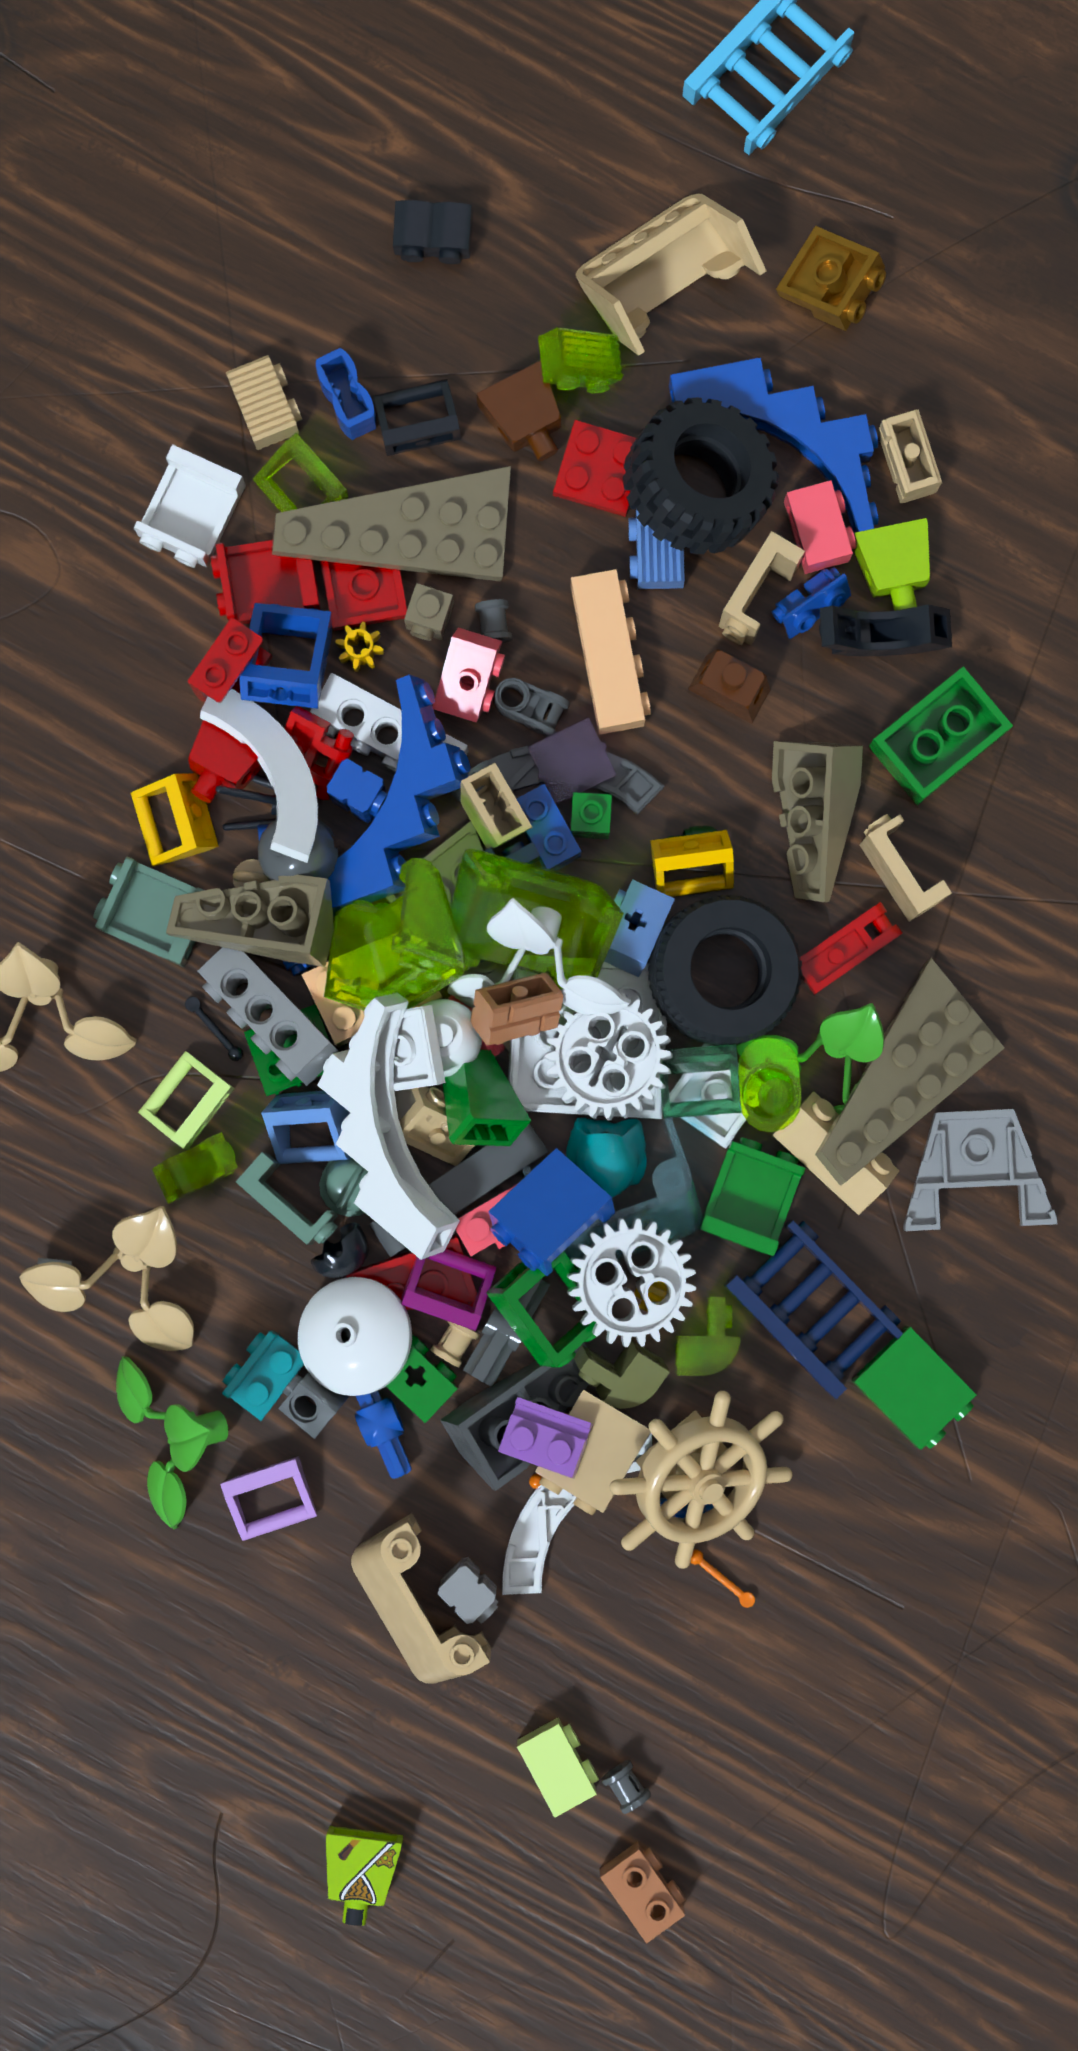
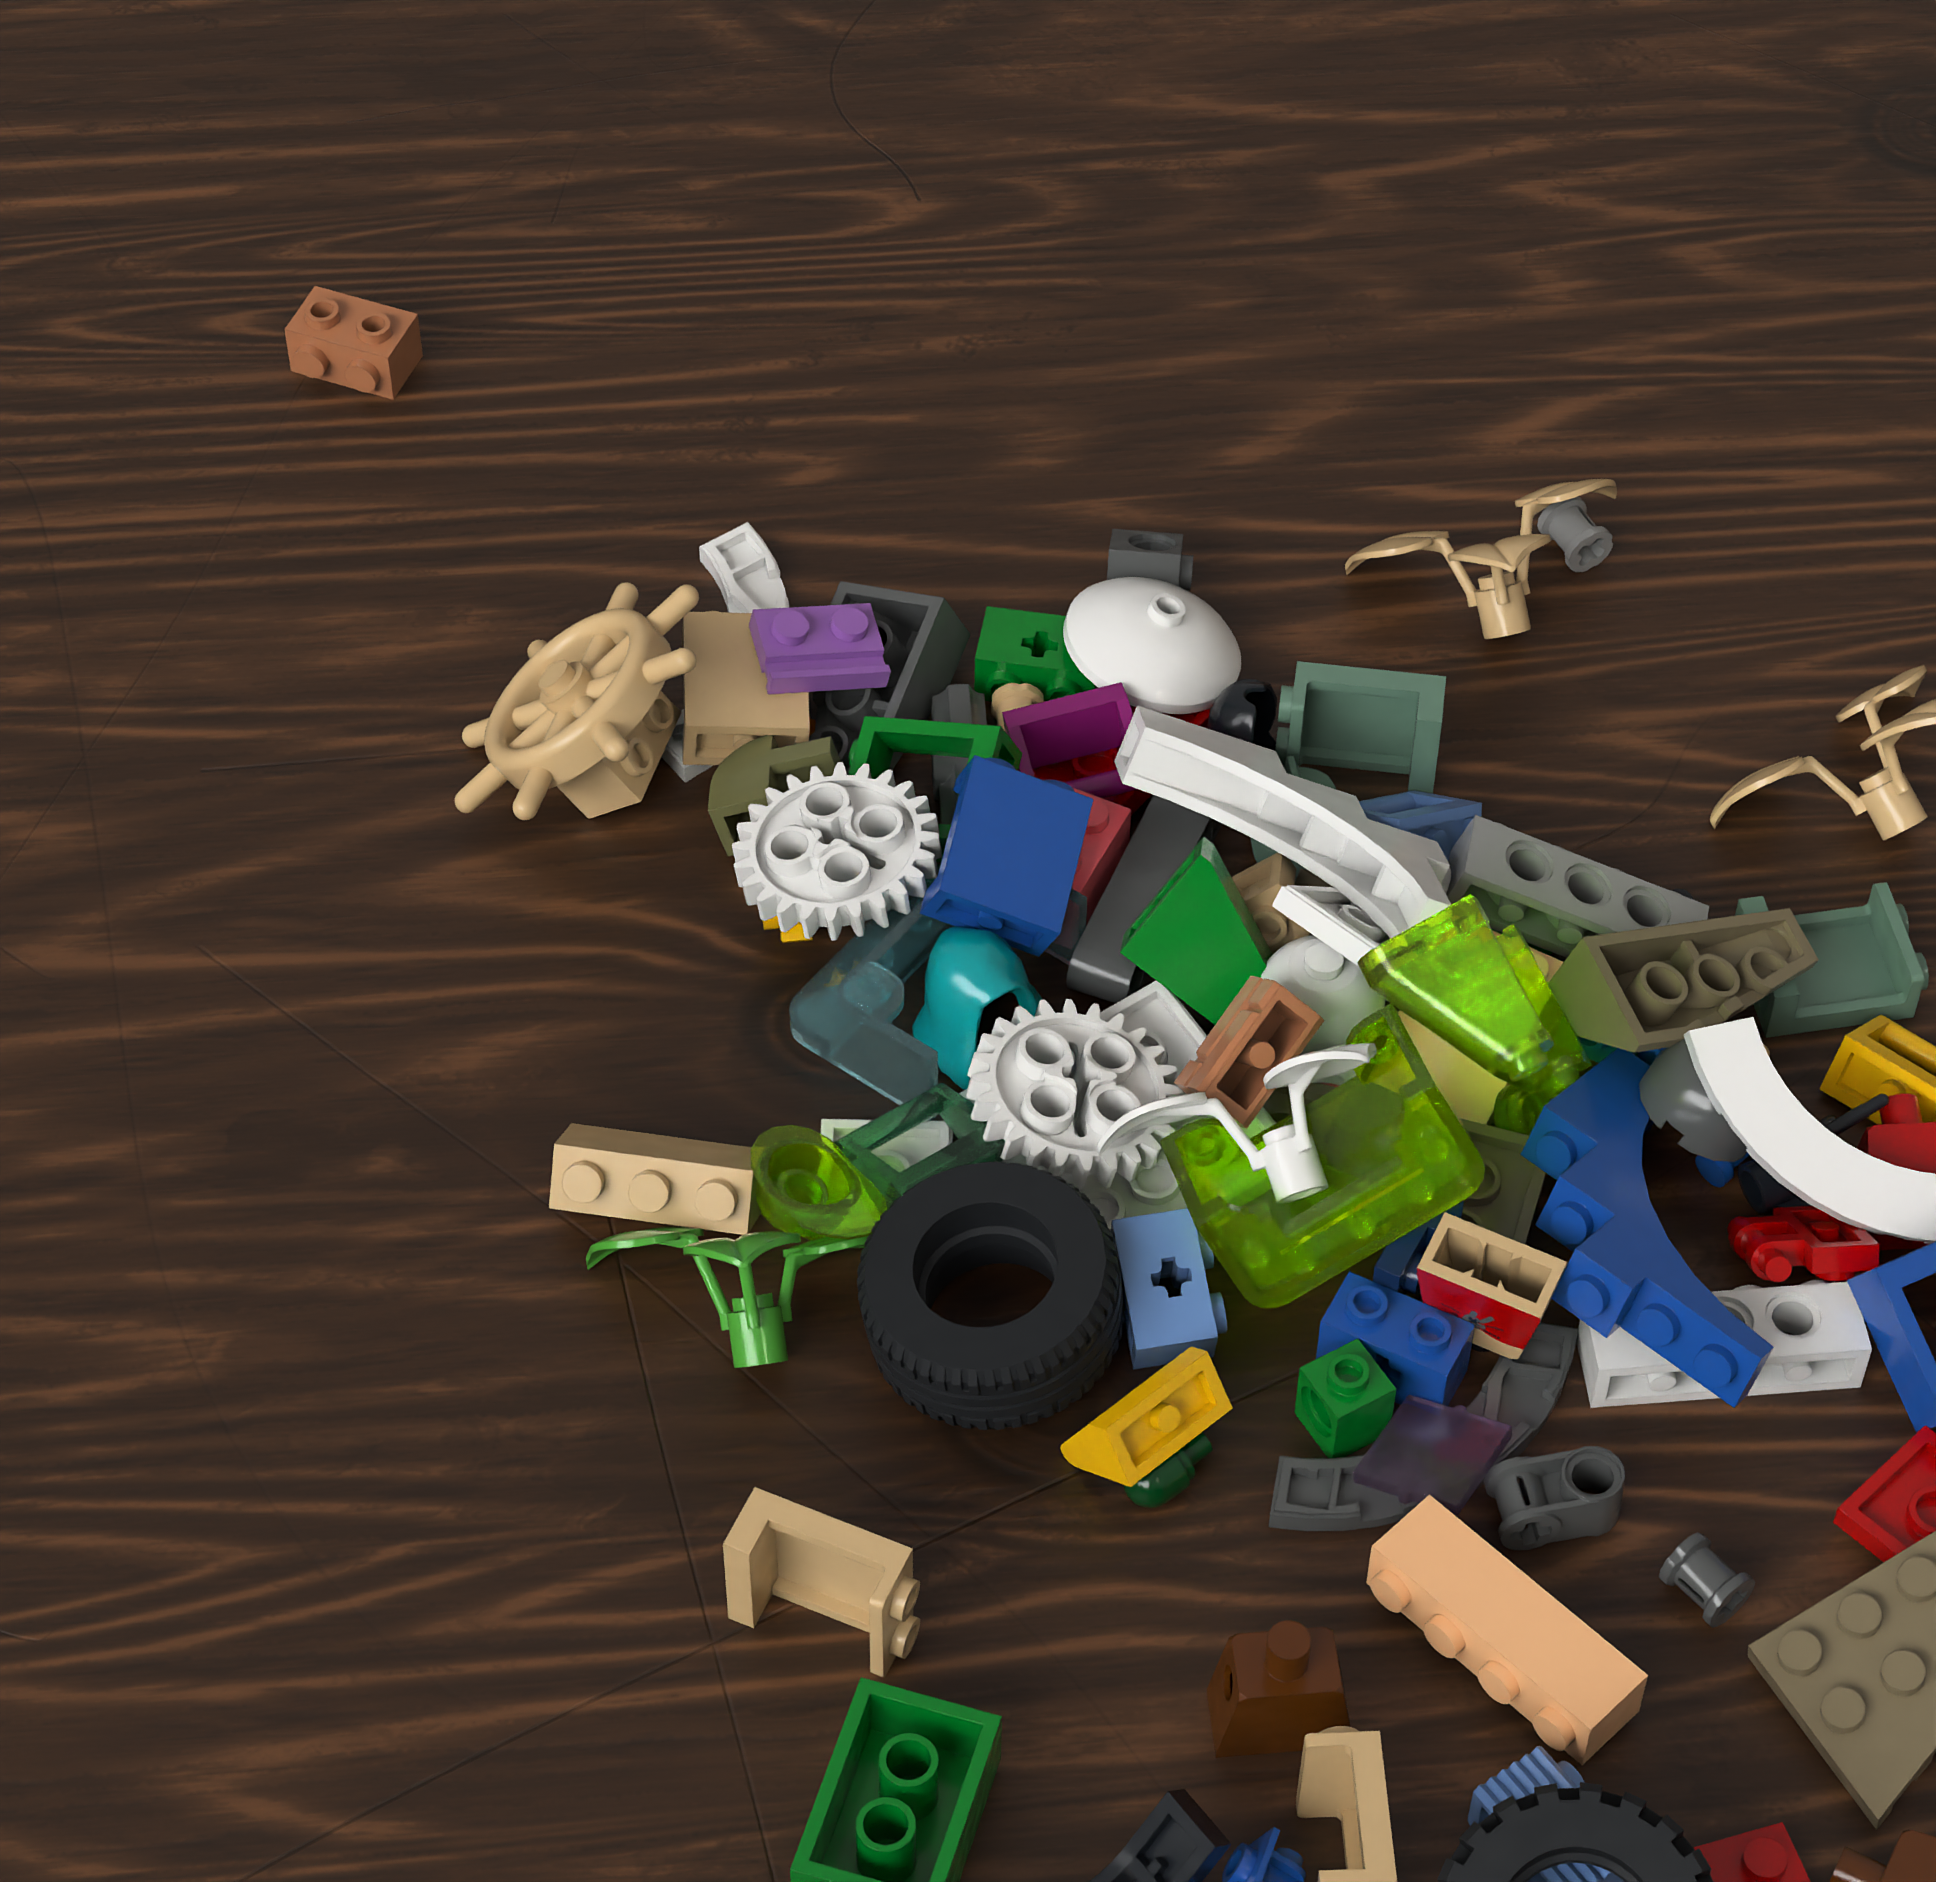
camera: 145 degrees right, 35 degrees down
(185, 1433) = (1260, 473): bright green plant -> none
(196, 1168) = (1508, 717): clear neon green brick -> none
(202, 1112) = (1568, 823): yellowish green tile -> none
(262, 1477) = (1118, 501): lavender tile -> none
(264, 1374) = (1231, 575): teal bracket -> none
(352, 638) = (1864, 1427): yellow gear -> none
(357, 791) = (1705, 1214): blue brick -> none
(360, 1869) = (719, 213): lime torso -> none
(380, 1428) = (1031, 588): blue axle -> none
(428, 612) = (1810, 1528): dark tan brick -> none
(429, 1655) = (792, 413): tan windscreen -> none
(468, 675) = (1681, 1466): brick -> none
(469, 1592) = (793, 480): light grey brick -> none
(557, 1766) = (549, 398): yellowish green brick -> none
(626, 1786) = (465, 428): dark grey bush -> none
(711, 1352) = (673, 884): clear neon green brick -> none
(745, 1597) = (425, 675): orange hinge -> none
(752, 1196) = (737, 1066): green panel -> none
(777, 1316) = (570, 948): dark blue fence -> none
(818, 801) = (1015, 1628): dark tan wedge -> none
(847, 948) = (837, 1439): red plate -> none
(914, 1389) = (349, 984): green brick -> none
(925, 1057) = (615, 1348): dark tan wing -> none
(976, 1152) = (441, 1308): light grey wing -> none

